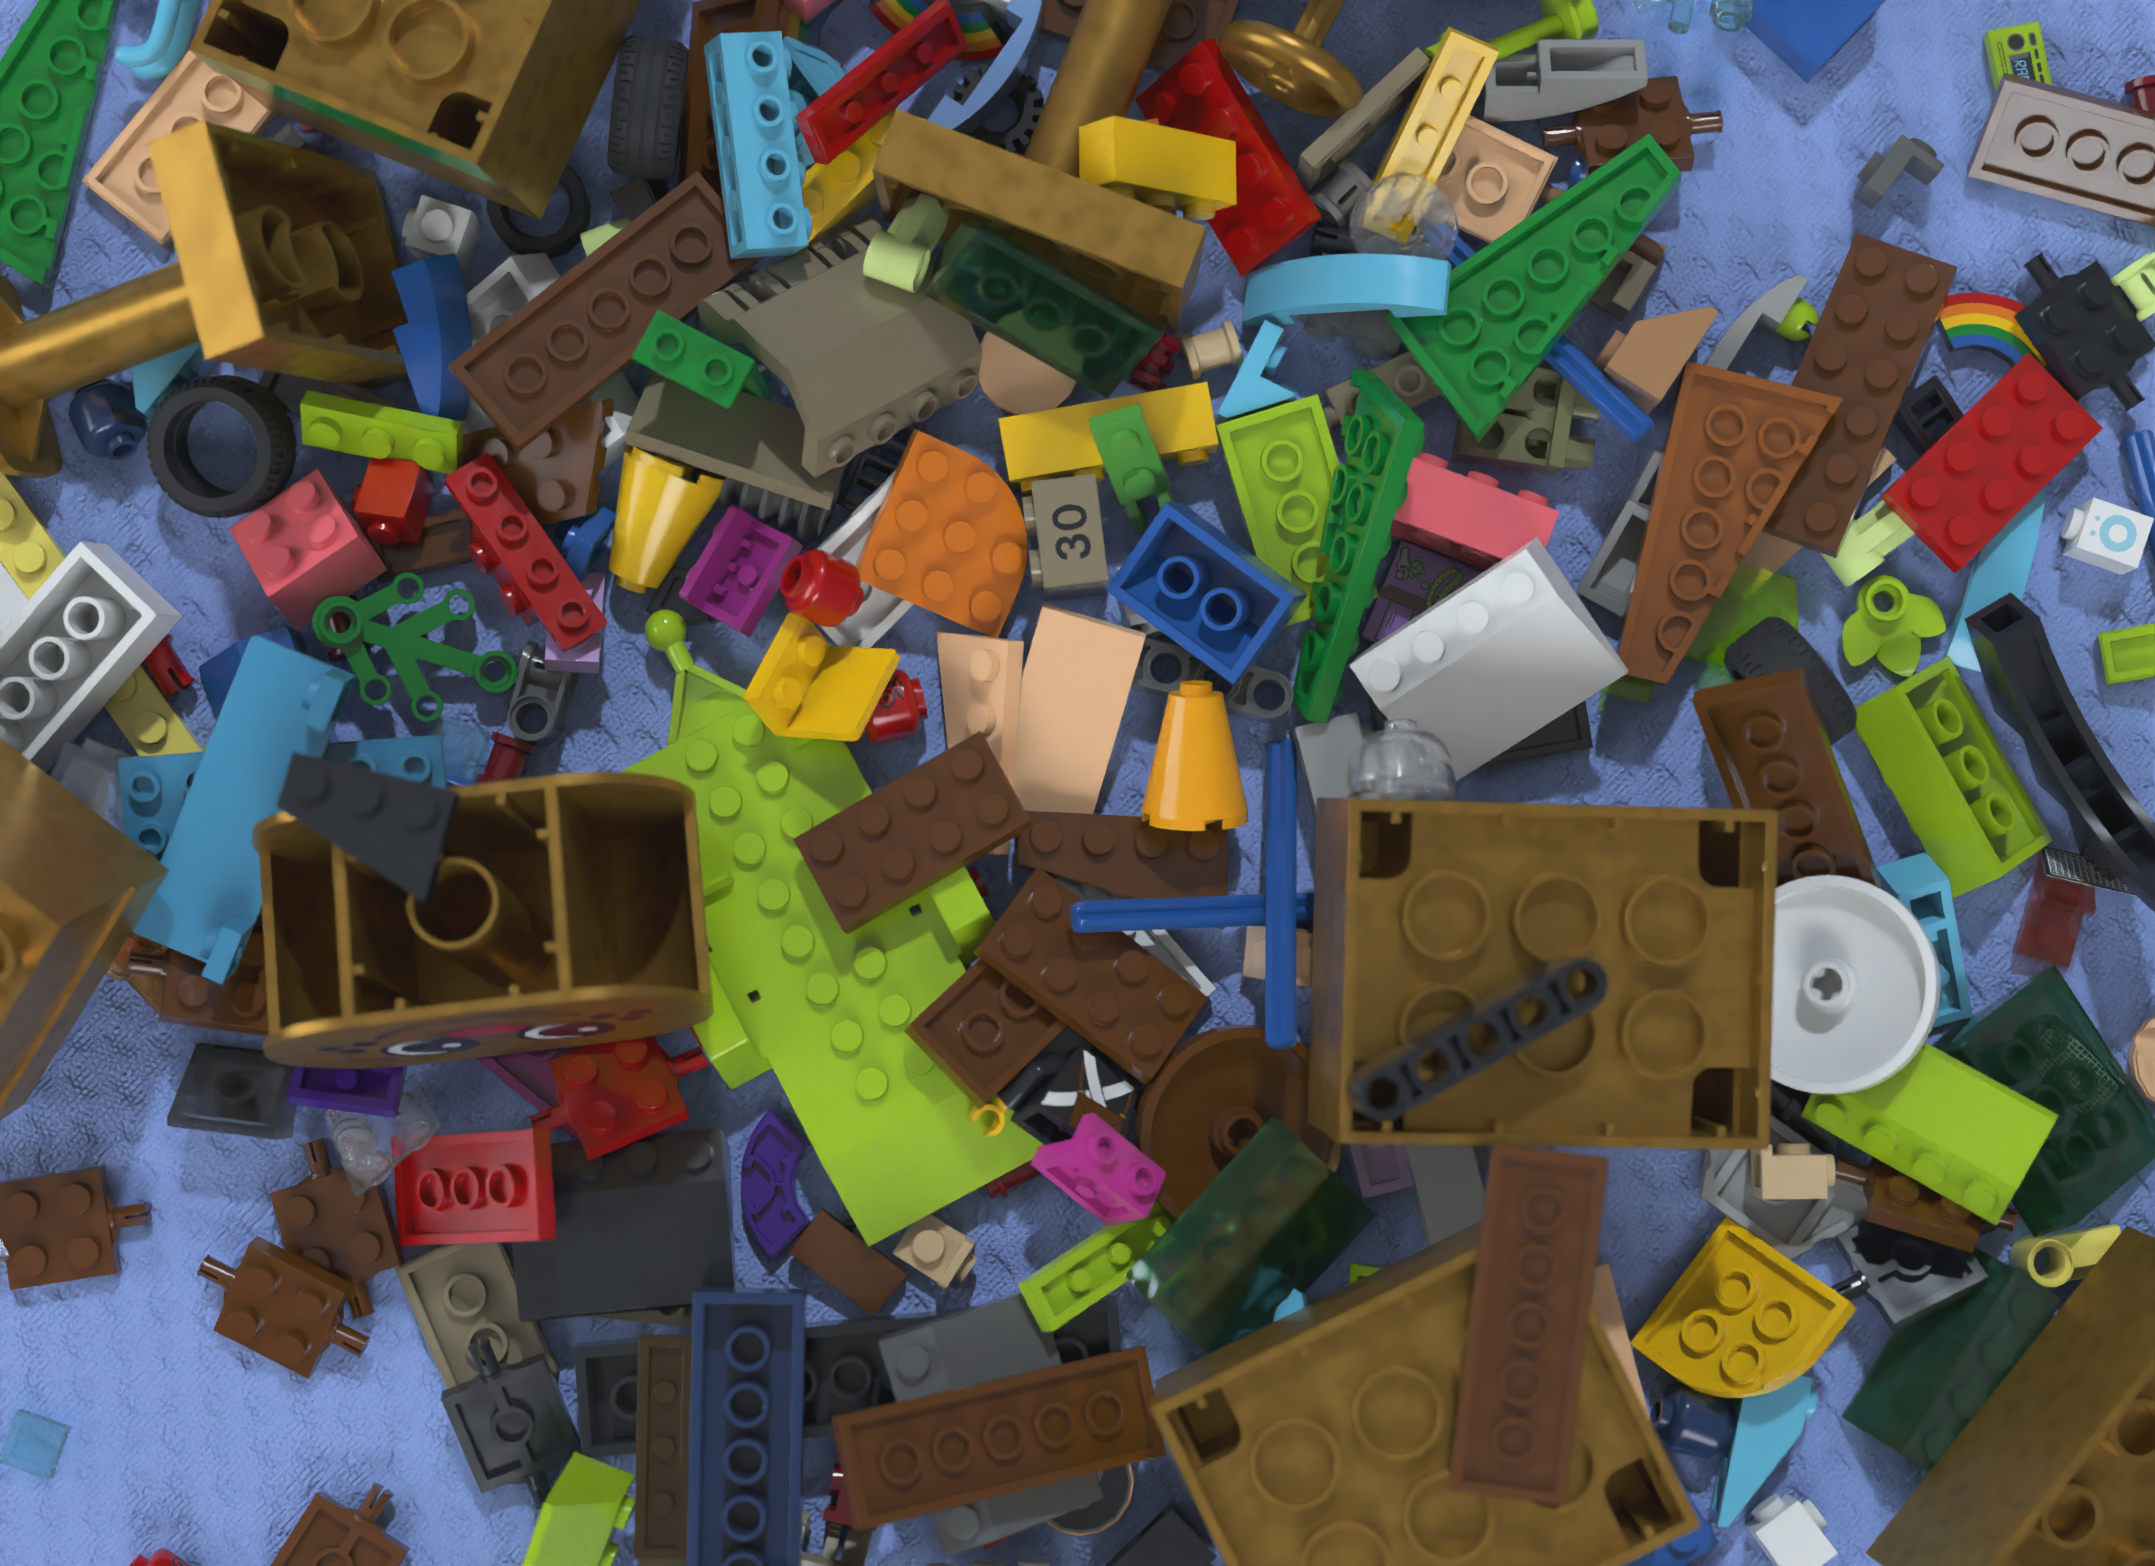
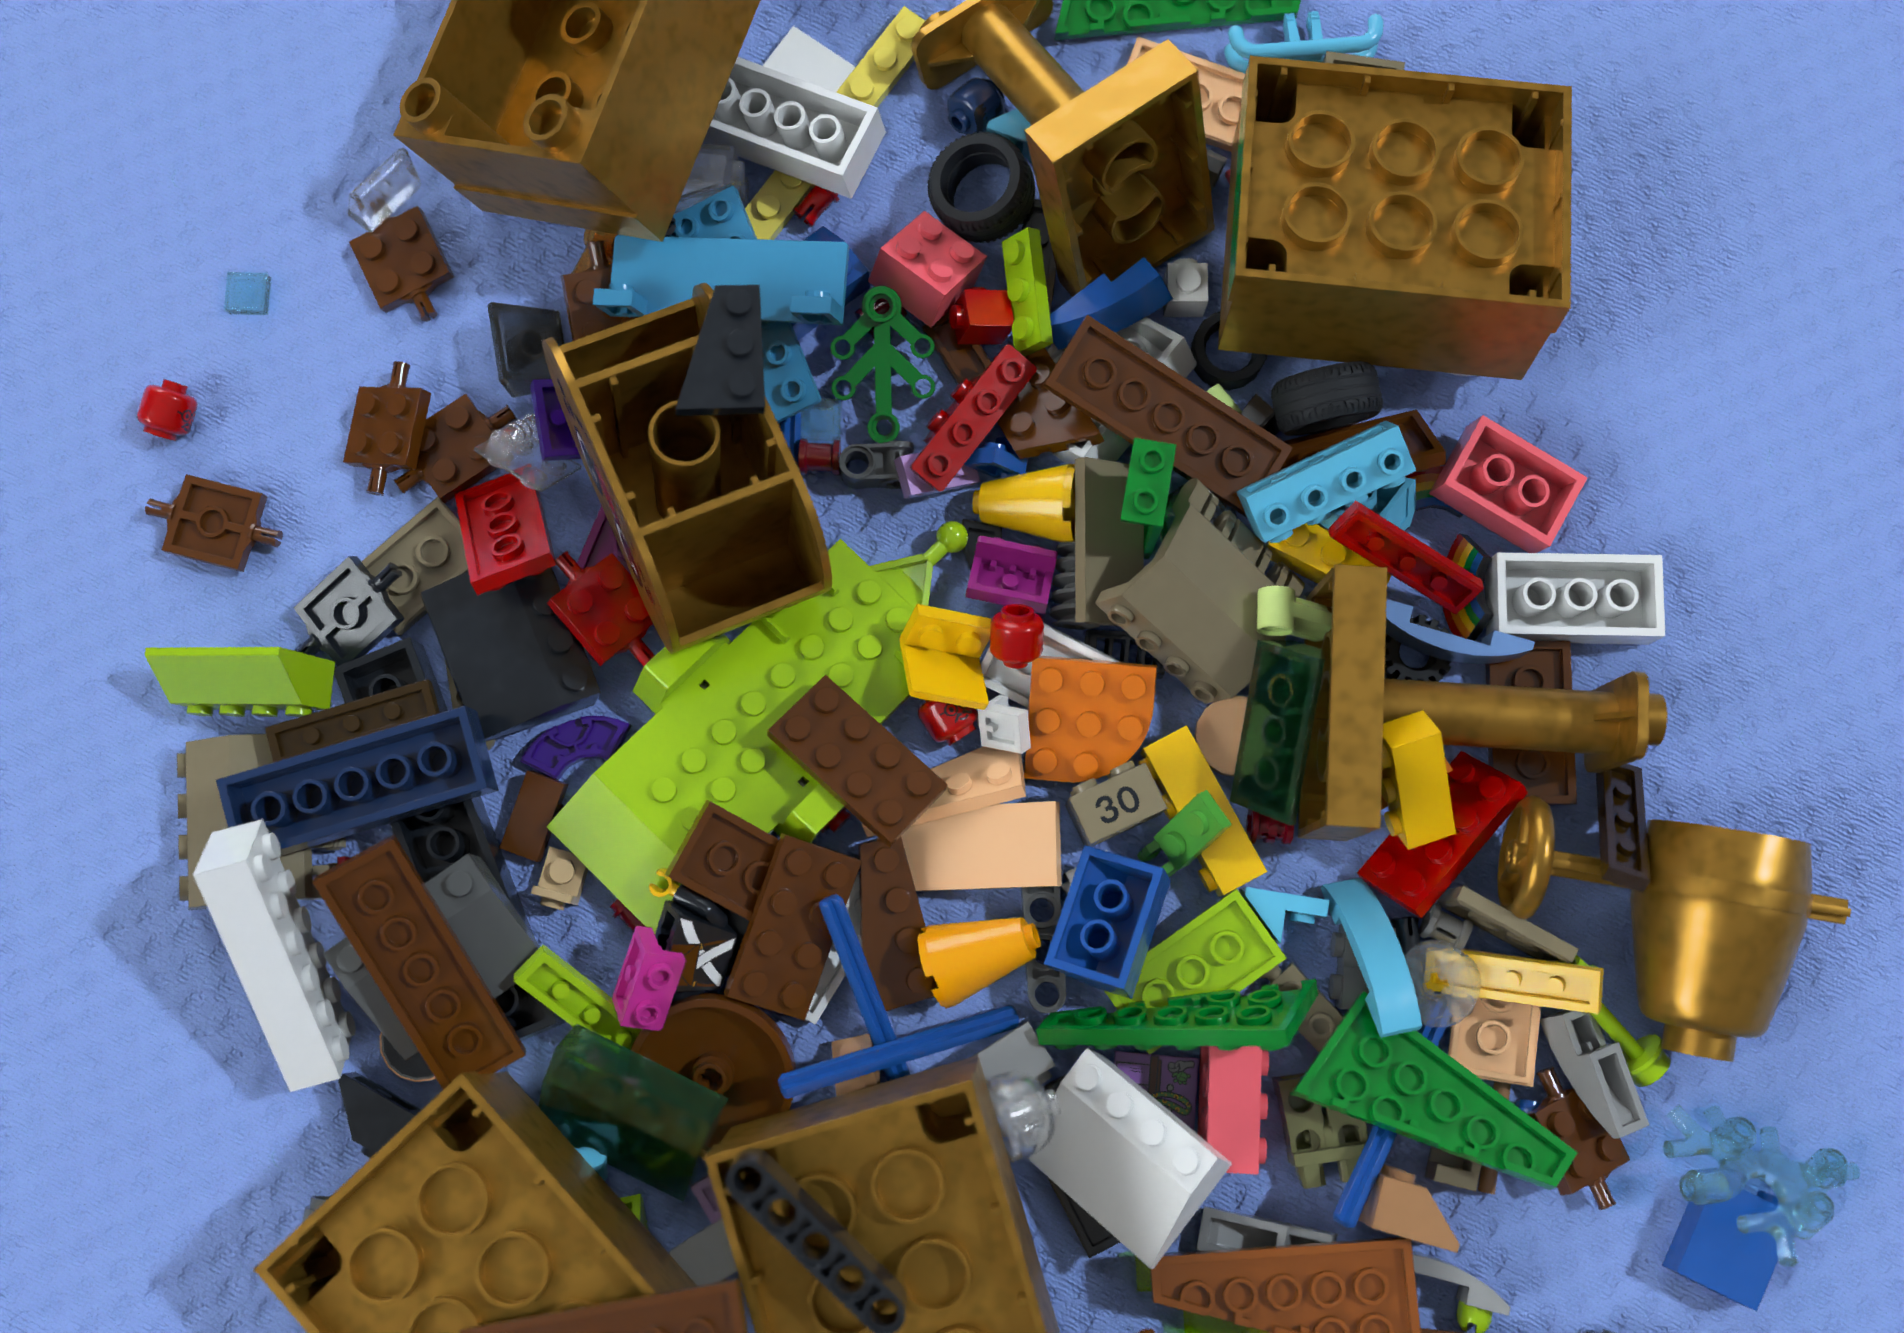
camera: 75 degrees right, 5 degrees down
(927, 641) = (1004, 726): none -> white bracket
(1211, 350) = (1293, 867): tan bush -> none

